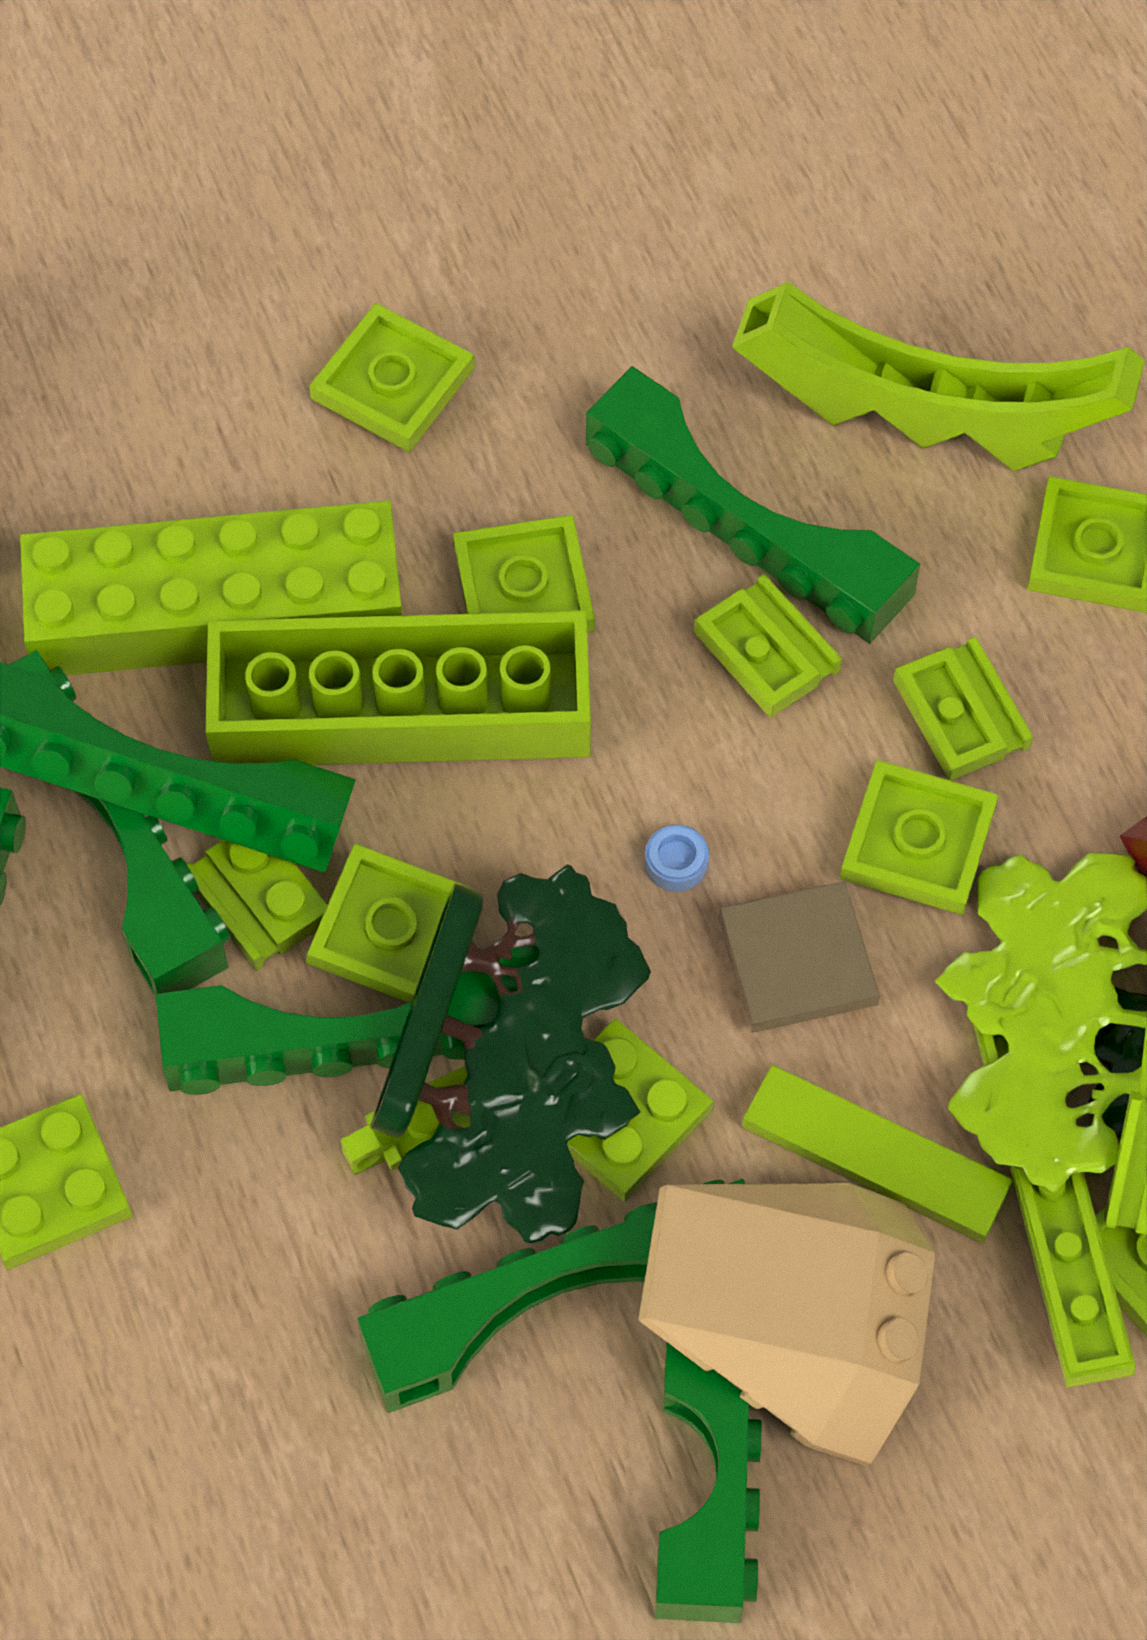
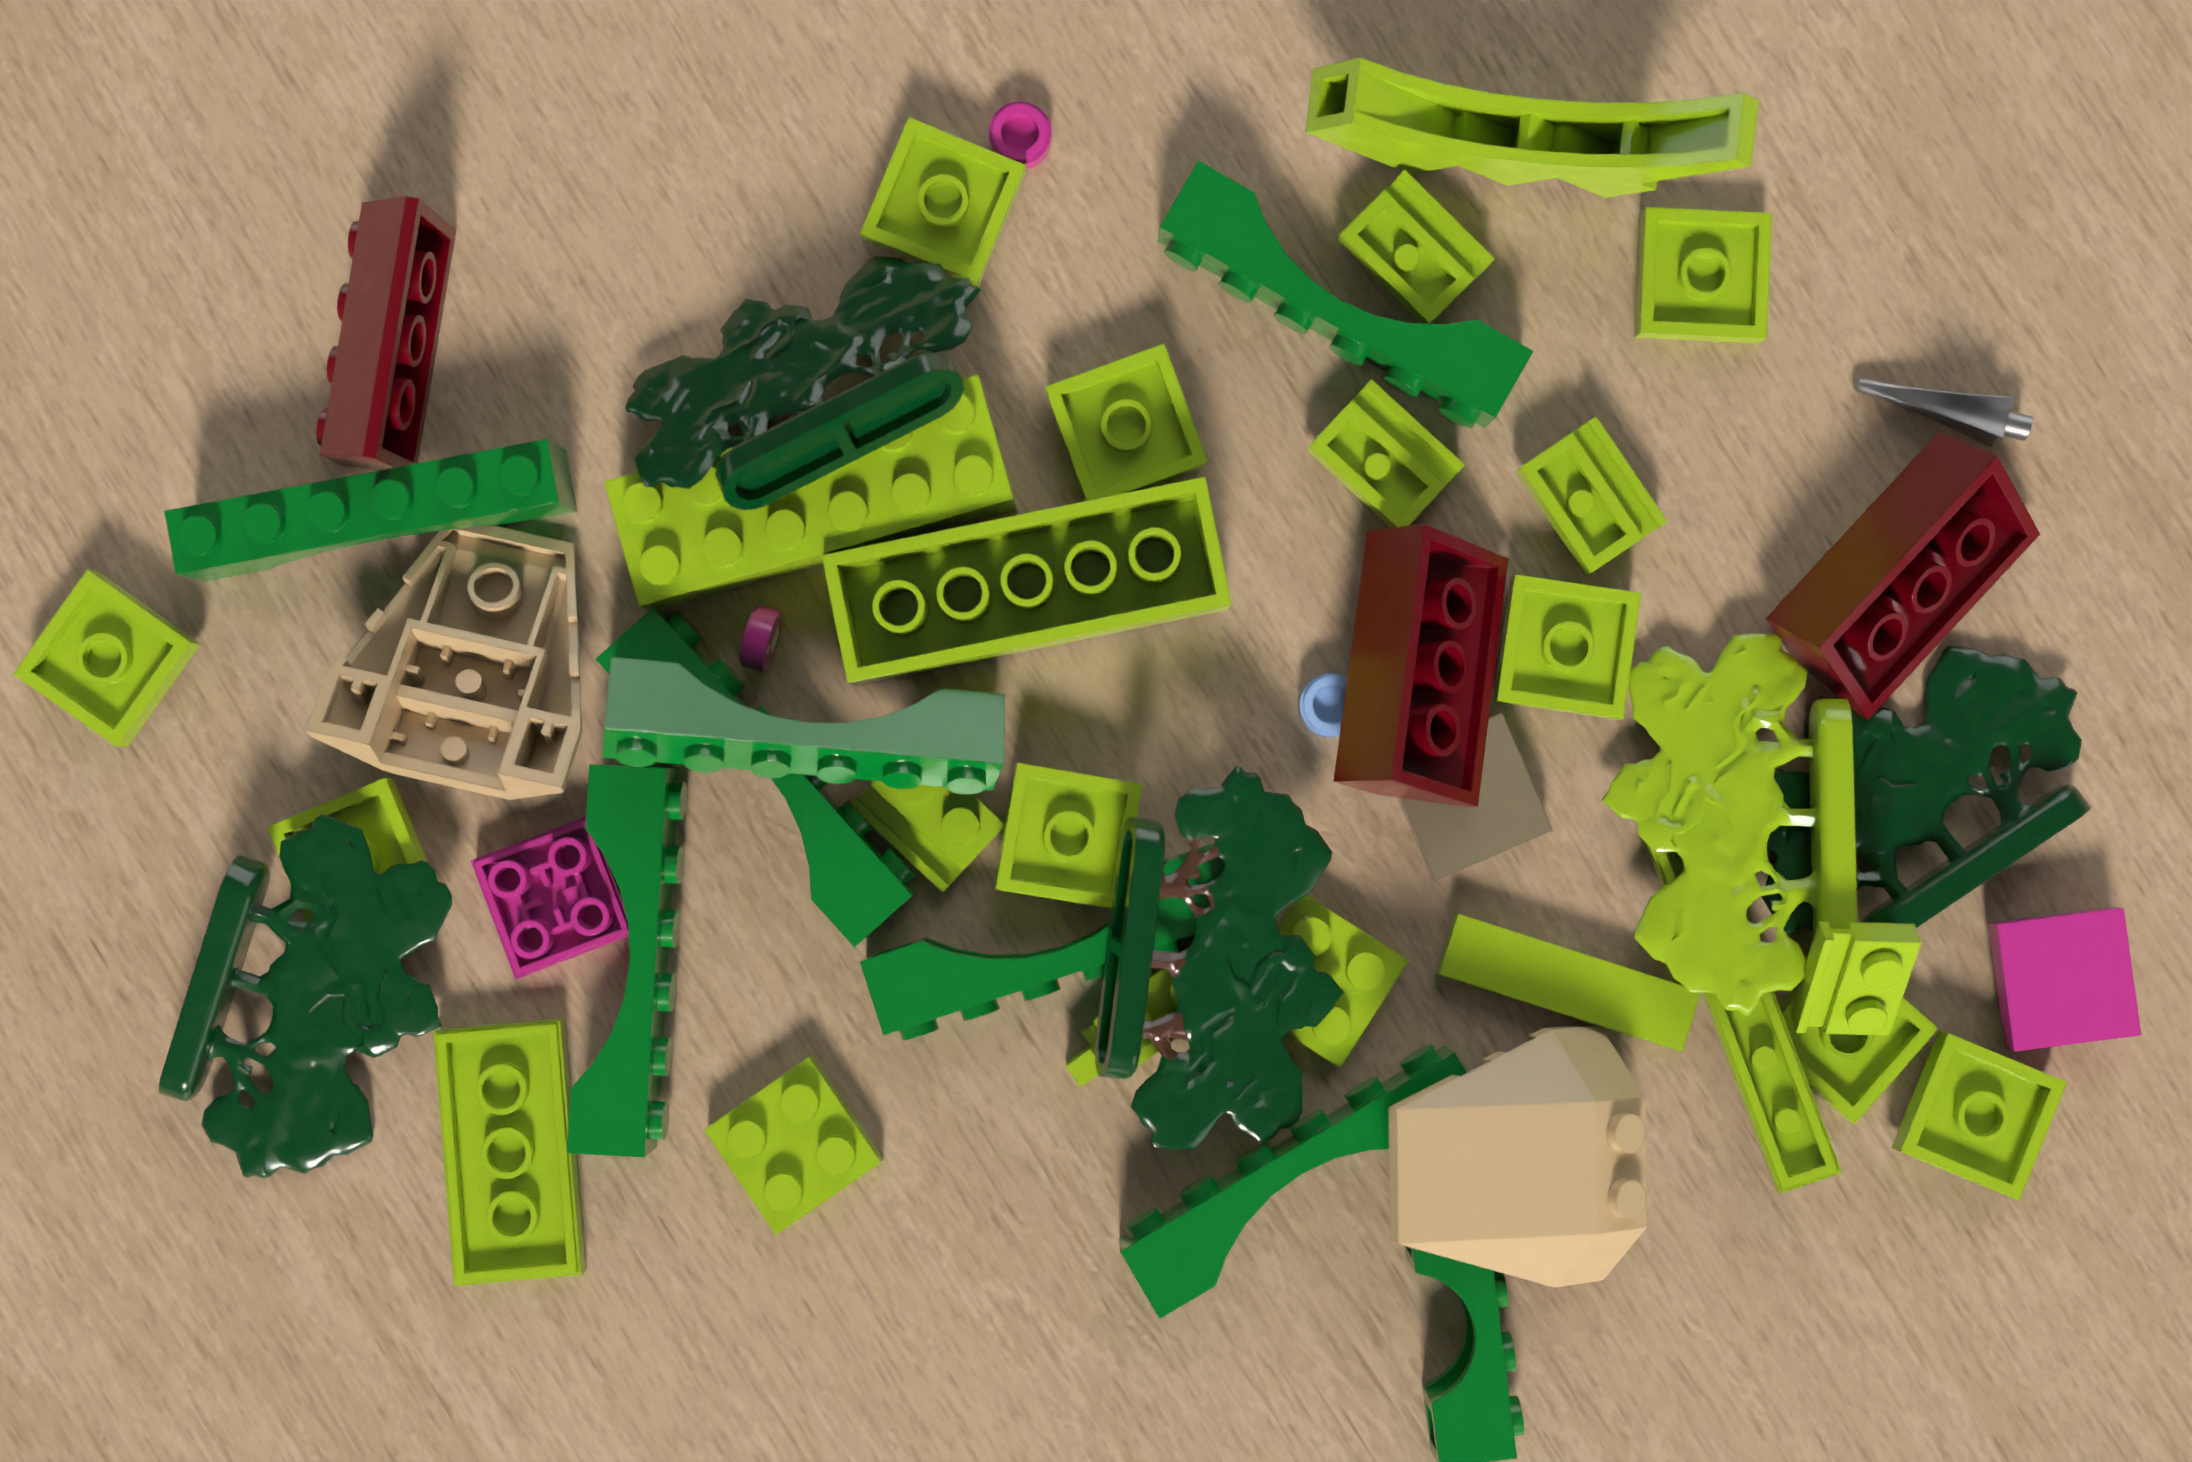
camera: 10 degrees left, 25 degrees up
(132, 704) = (761, 638): none -> dark pink tile
(230, 494) = (781, 365): none -> dark green plant
(478, 334) = (1021, 133): none -> dark pink tile
(770, 822) = (1421, 666): none -> dark red slope
(825, 475) = (1415, 248): none -> lime plate

